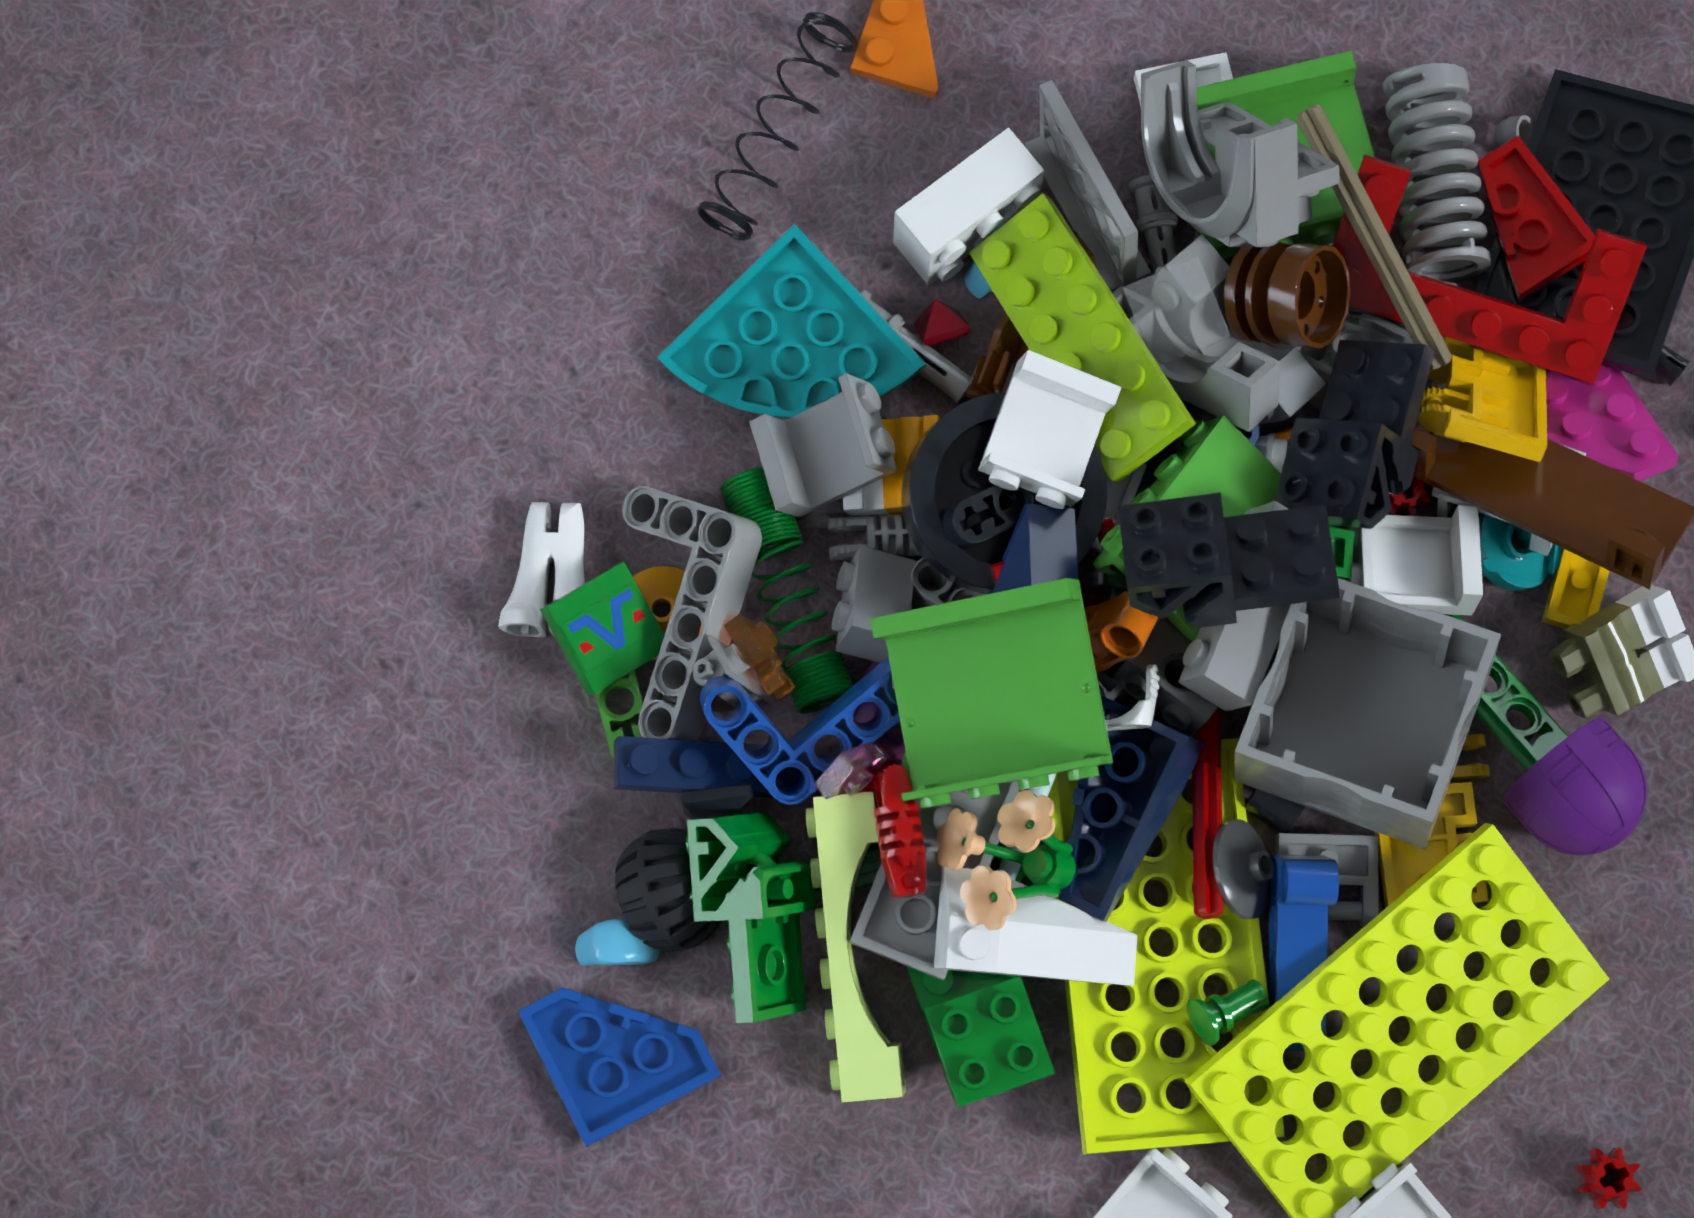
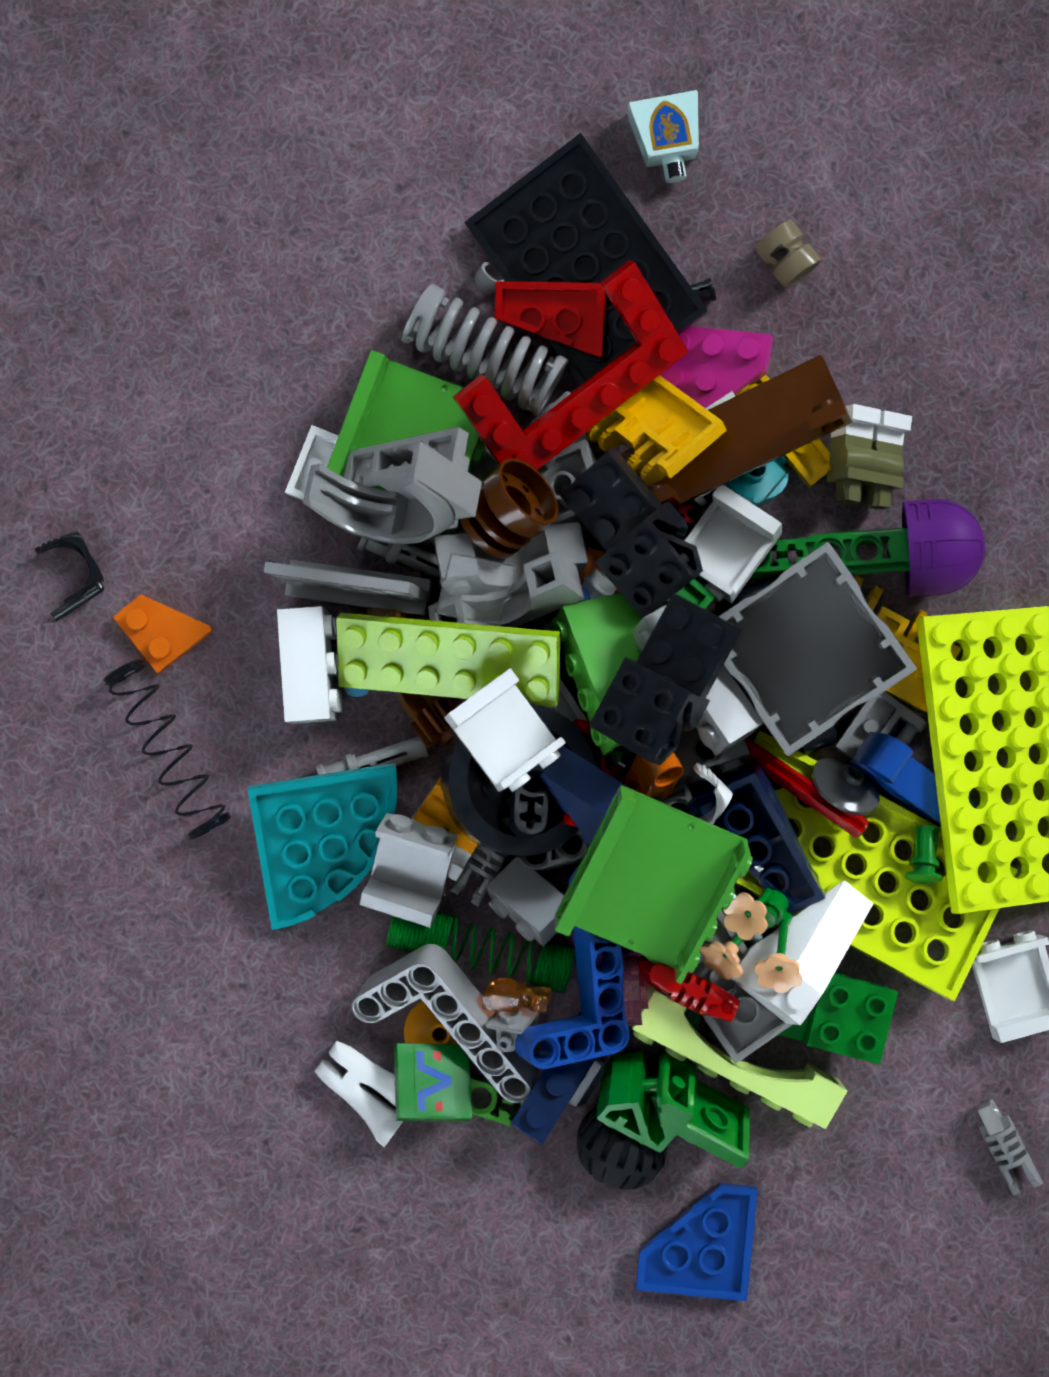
camera: 60 degrees left, 10 degrees up
(612, 944) = (633, 1204): medium azure hair -> none
(940, 324) = (371, 732): dark red slope -> none
(1374, 236) = (511, 429): dark tan axle -> none

